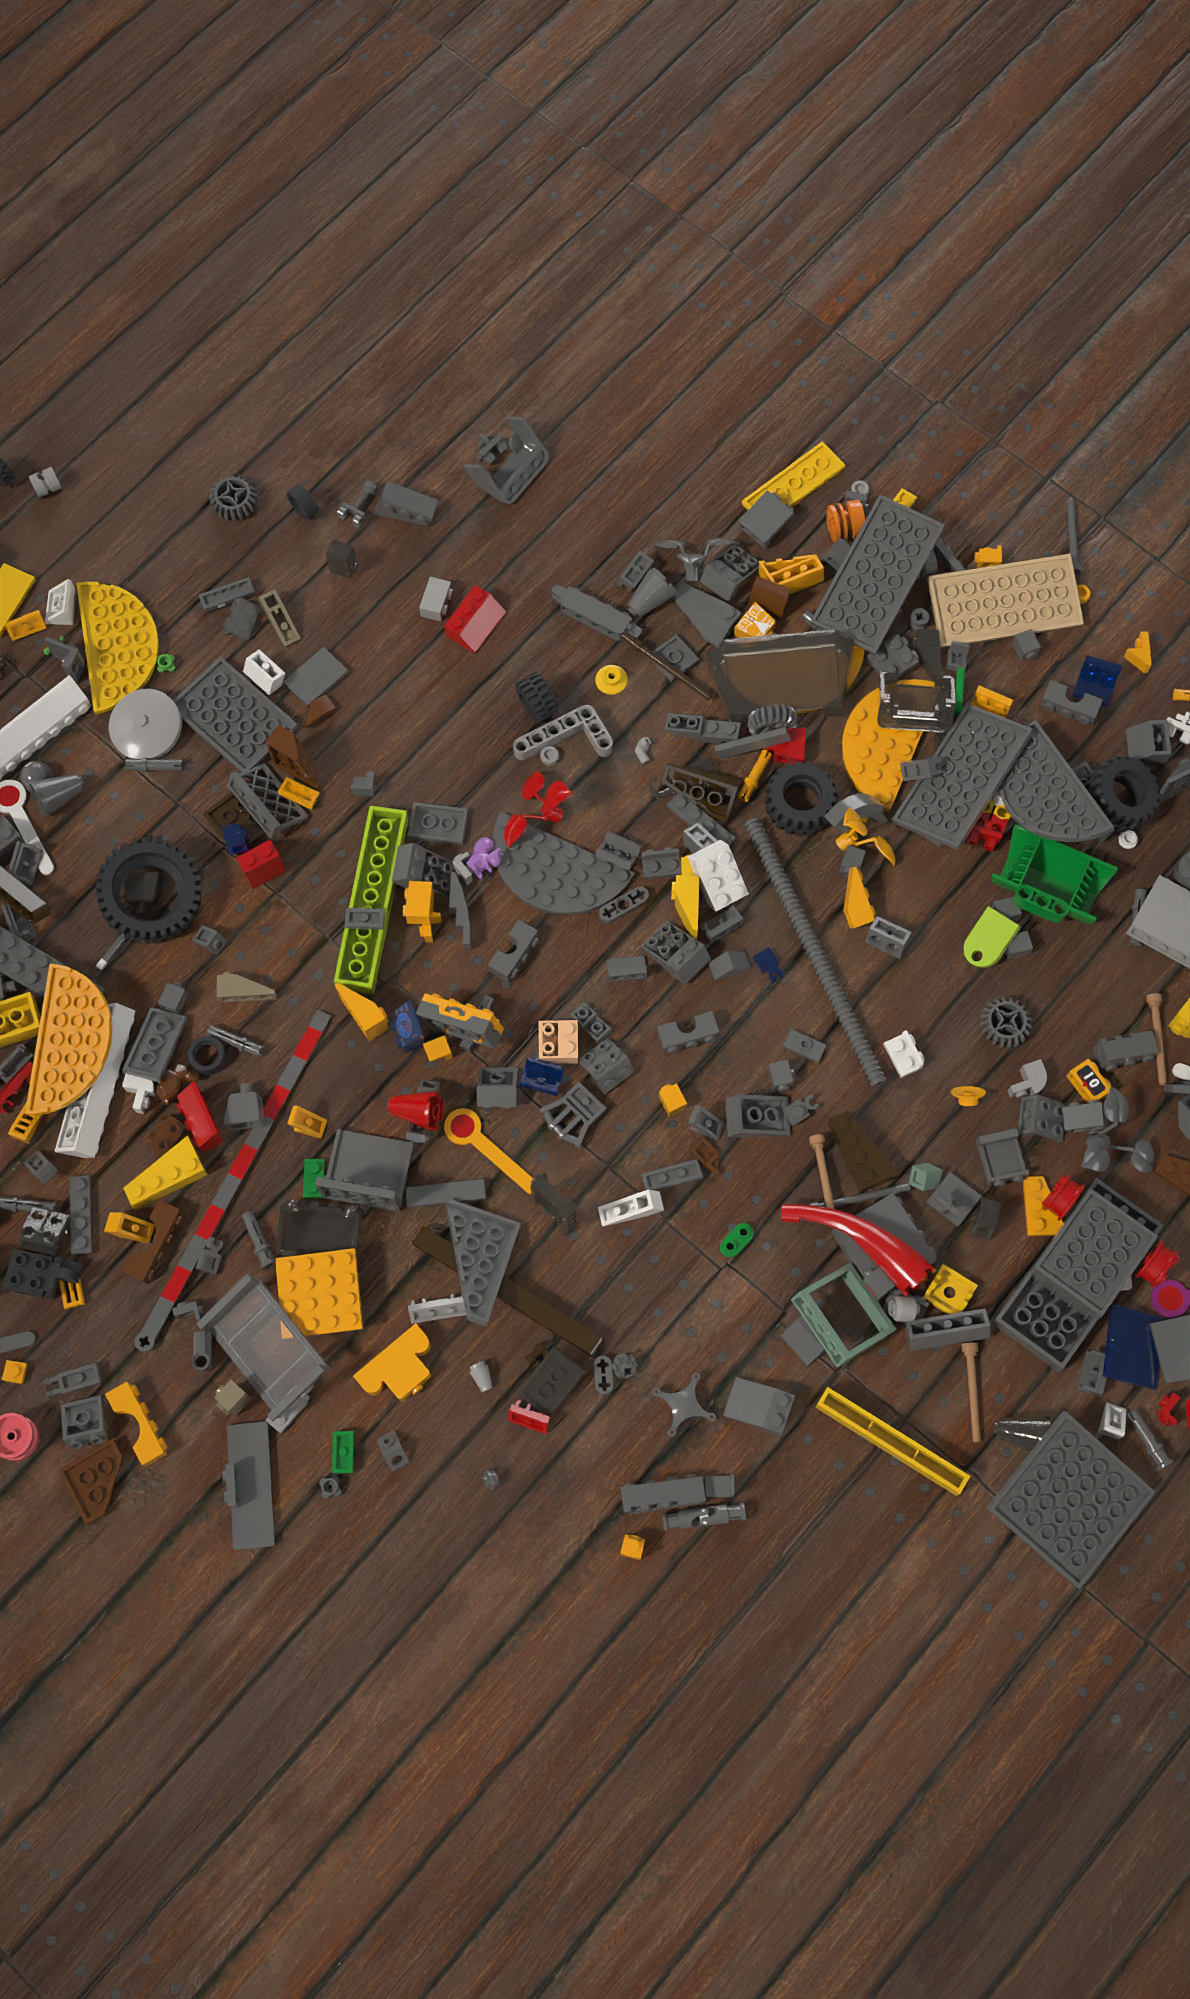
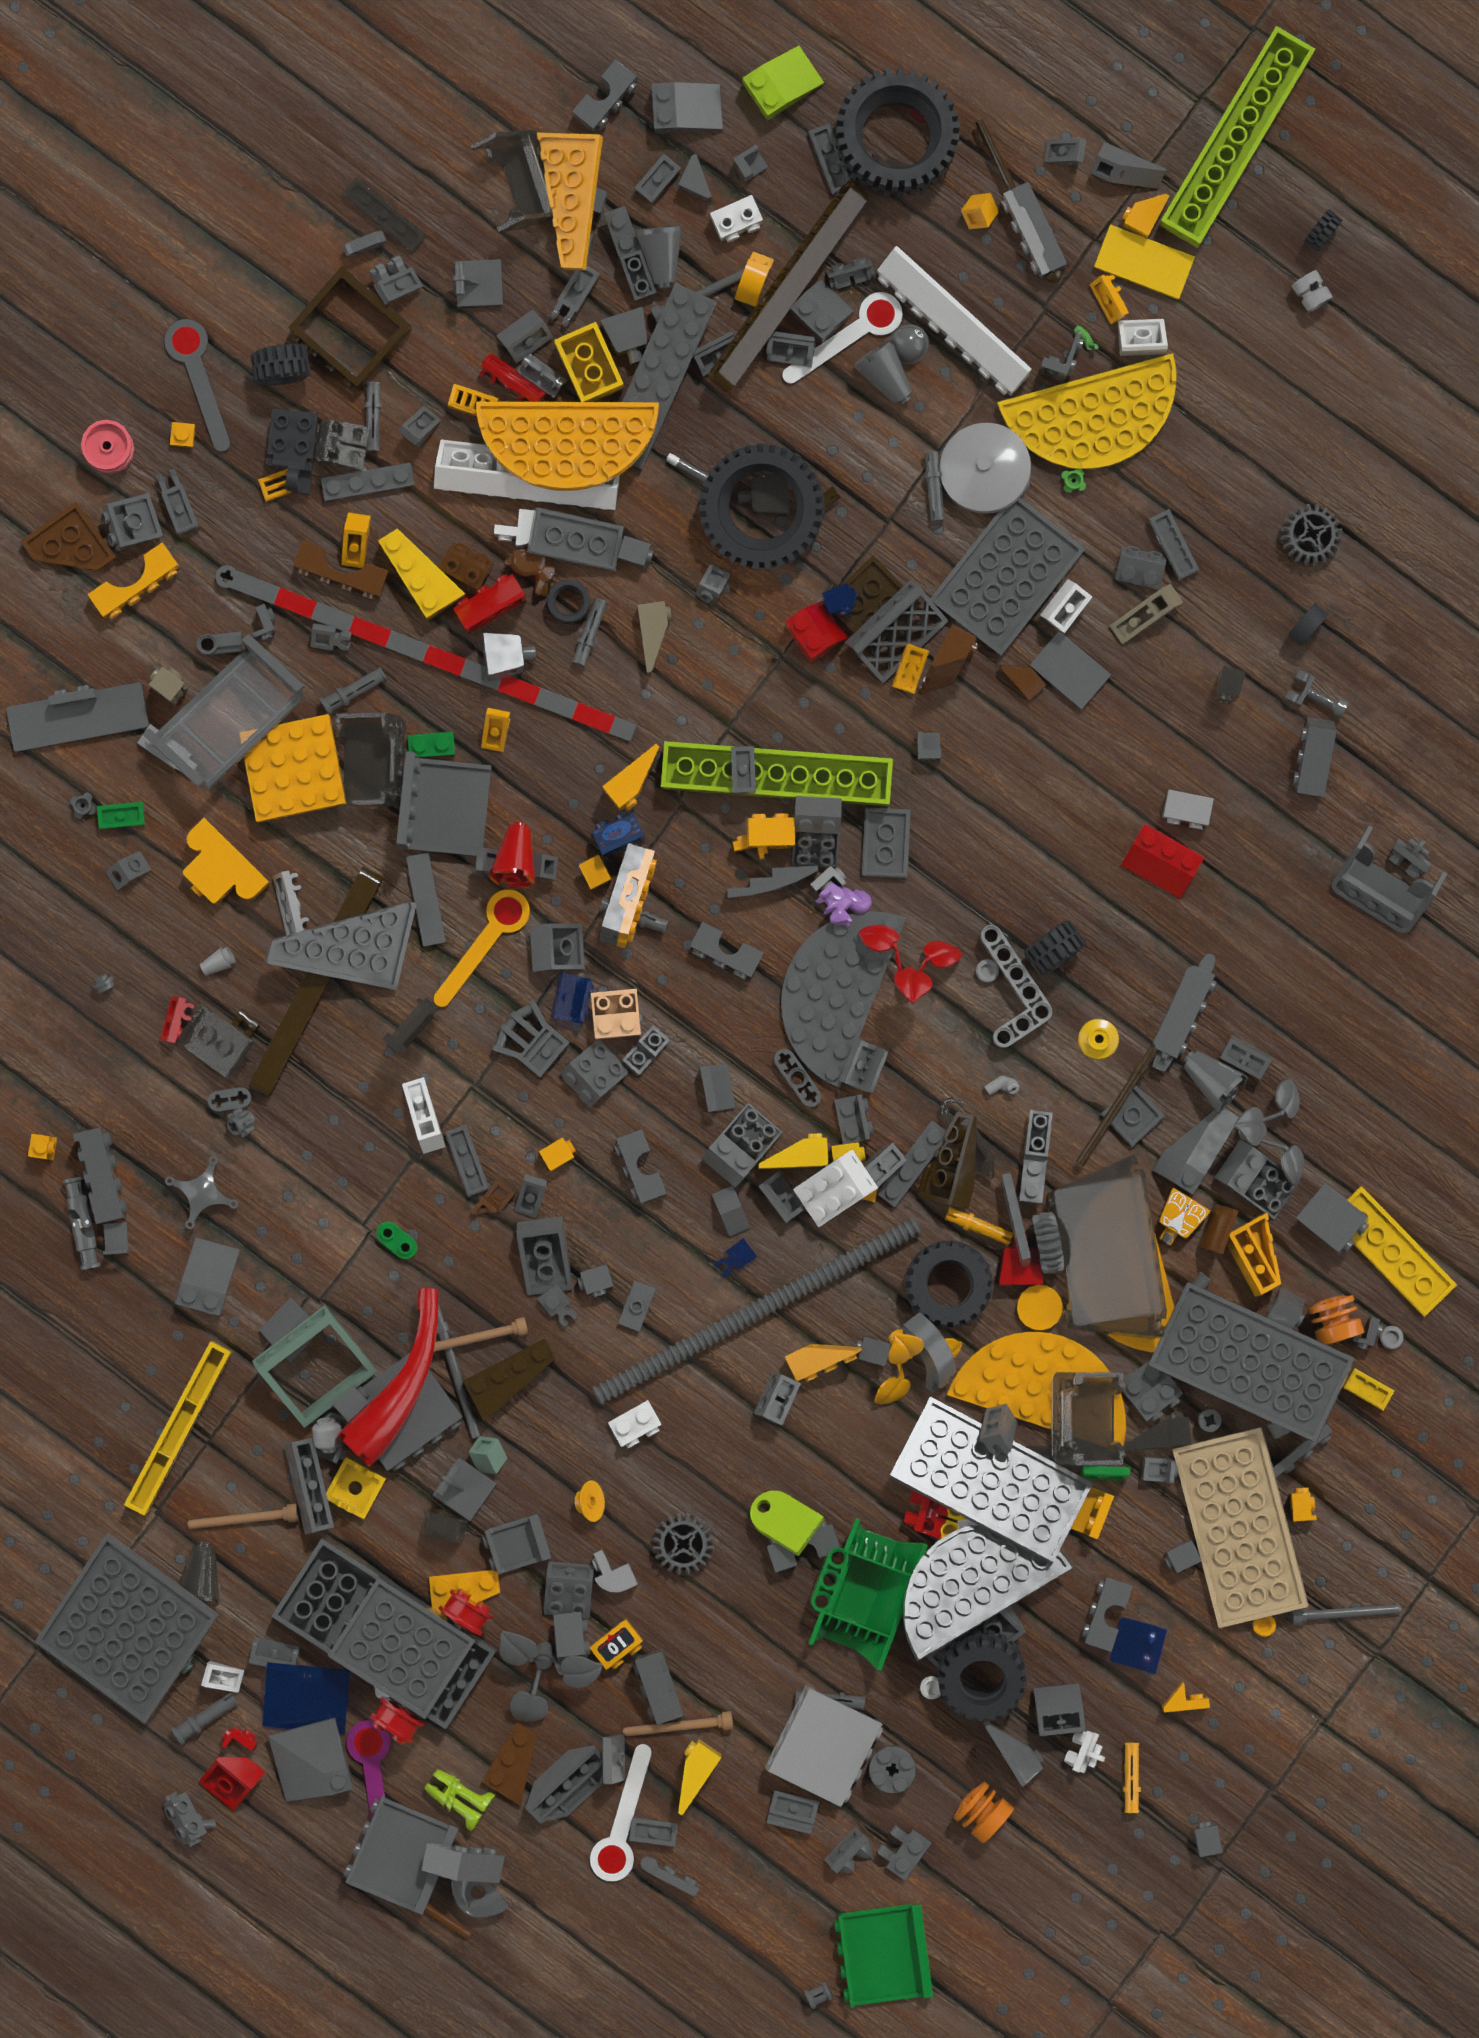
camera: 80 degrees right, 15 degrees up
(823, 736) = (1039, 1307): none -> light orange tile

